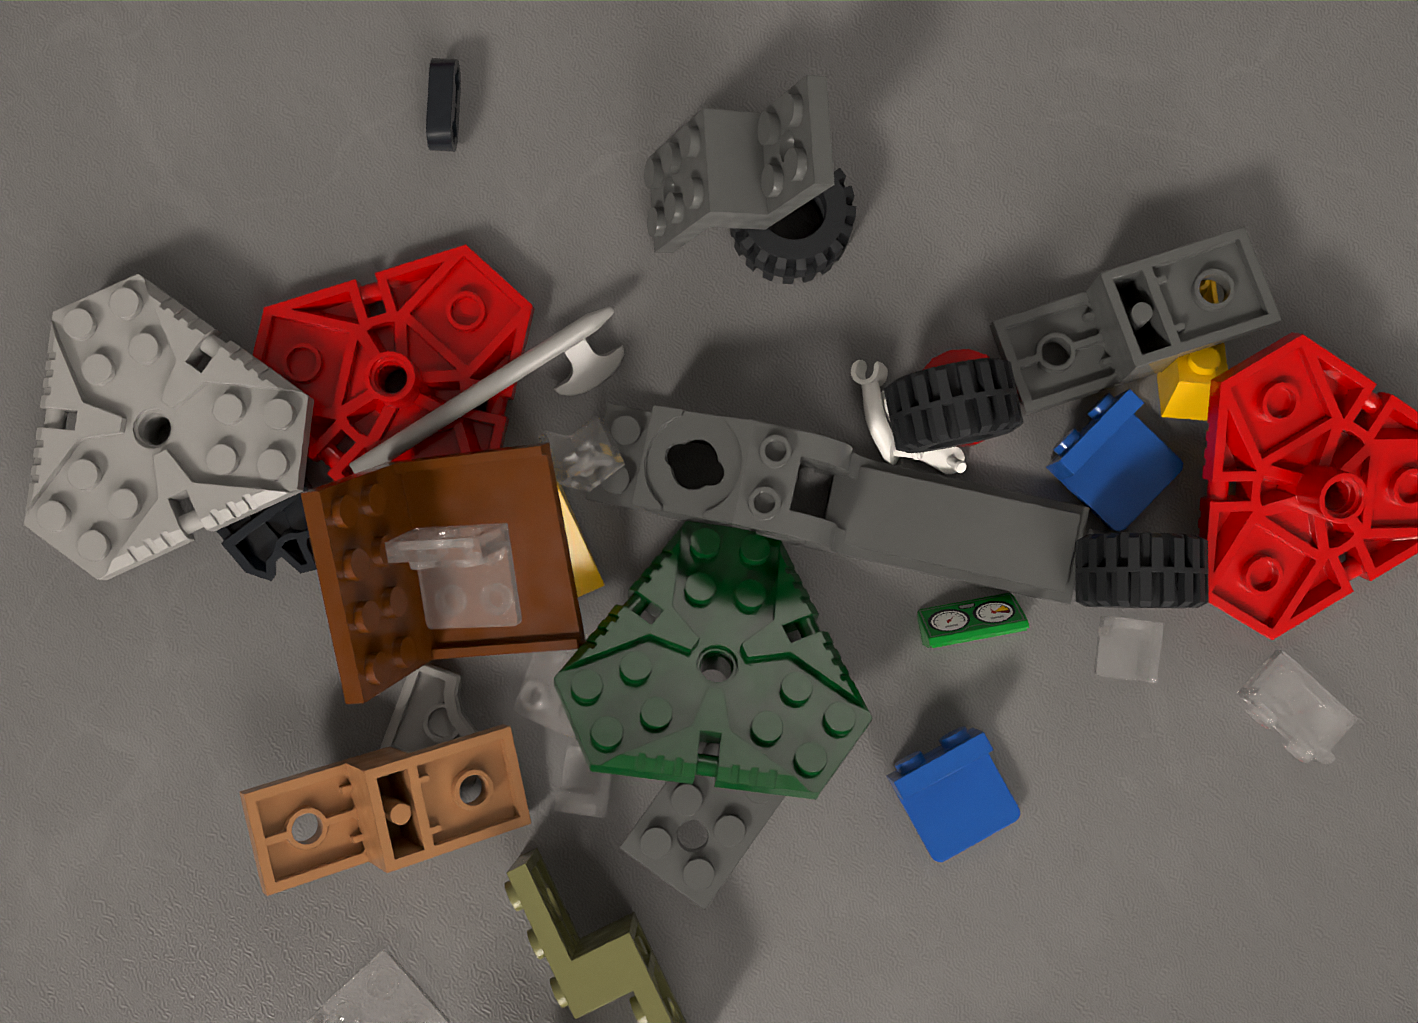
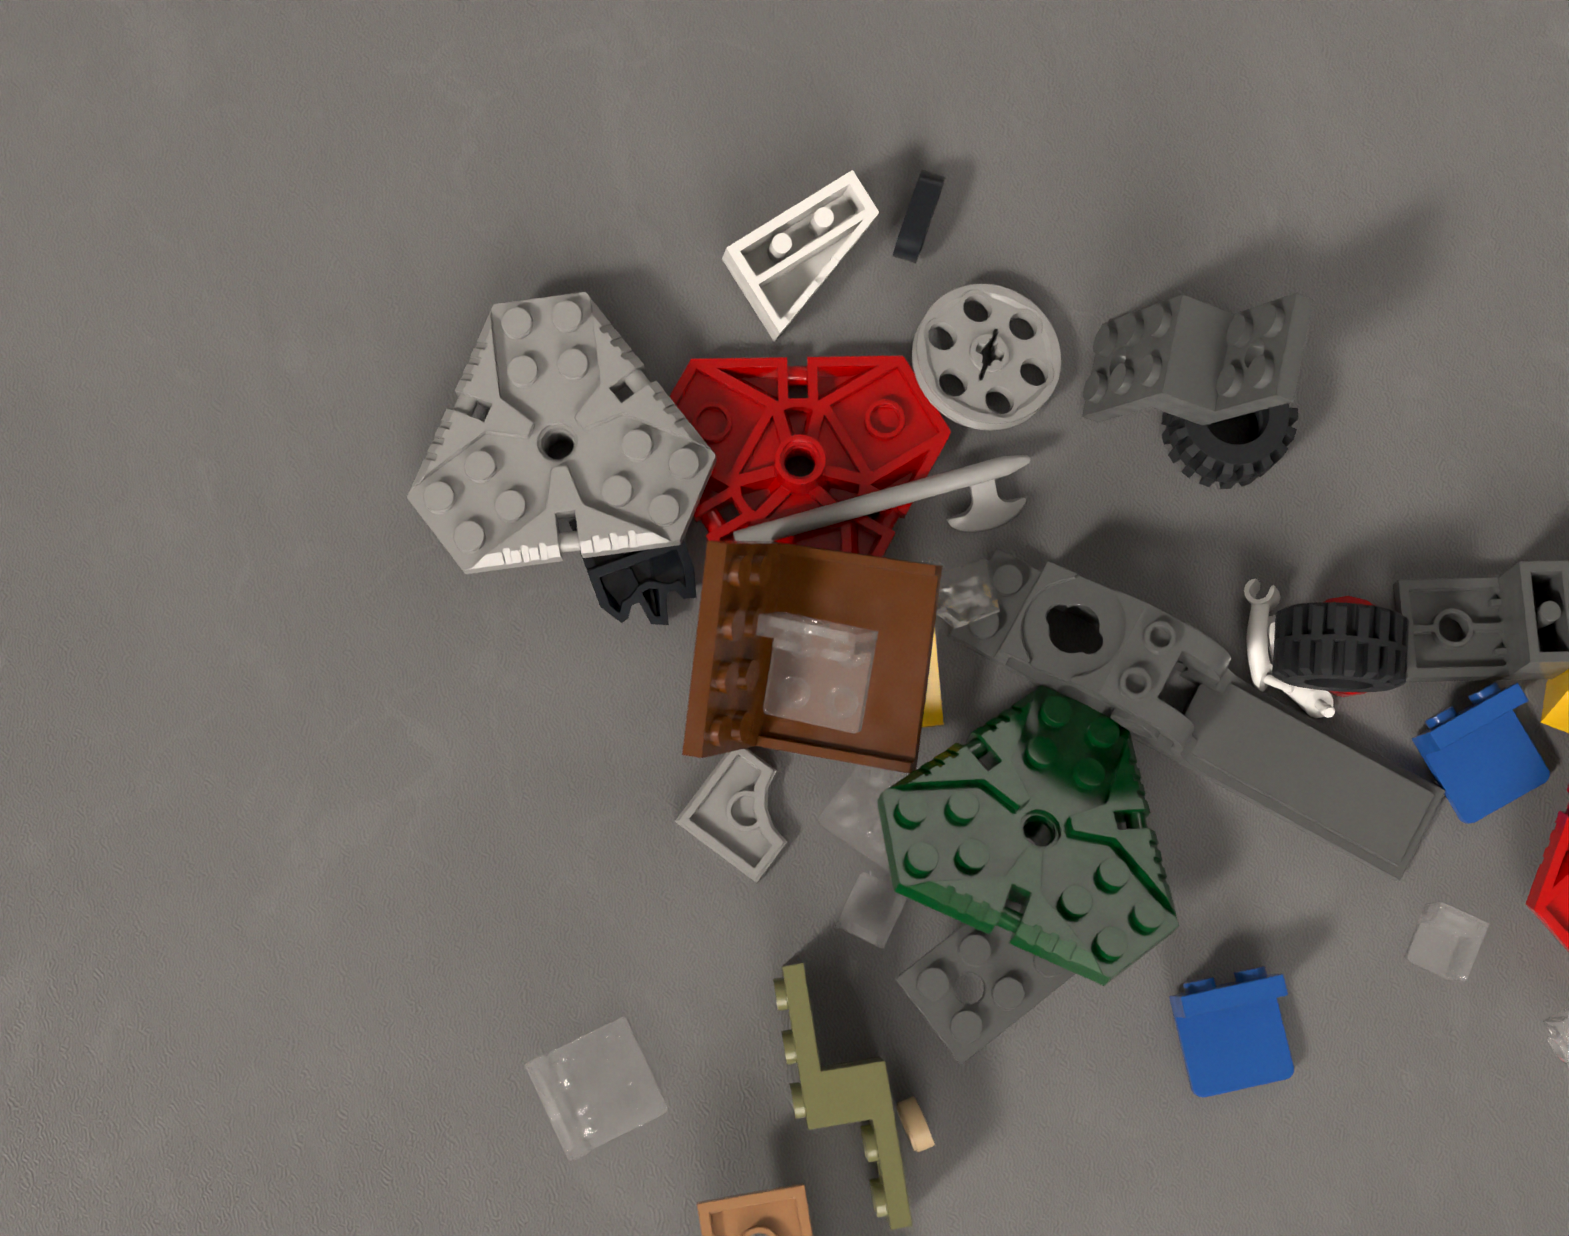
camera: 15 degrees right, 5 degrees down
(336, 170) = (798, 250): none -> white wedge
(385, 808) = (675, 874): medium nougat bracket -> none
(525, 231) = (966, 361): none -> light grey wedge
(682, 969) = (914, 1124): none -> tan tile
(971, 620) = (1296, 867): slope -> none
(1142, 570) = (1481, 864): black tyre -> none

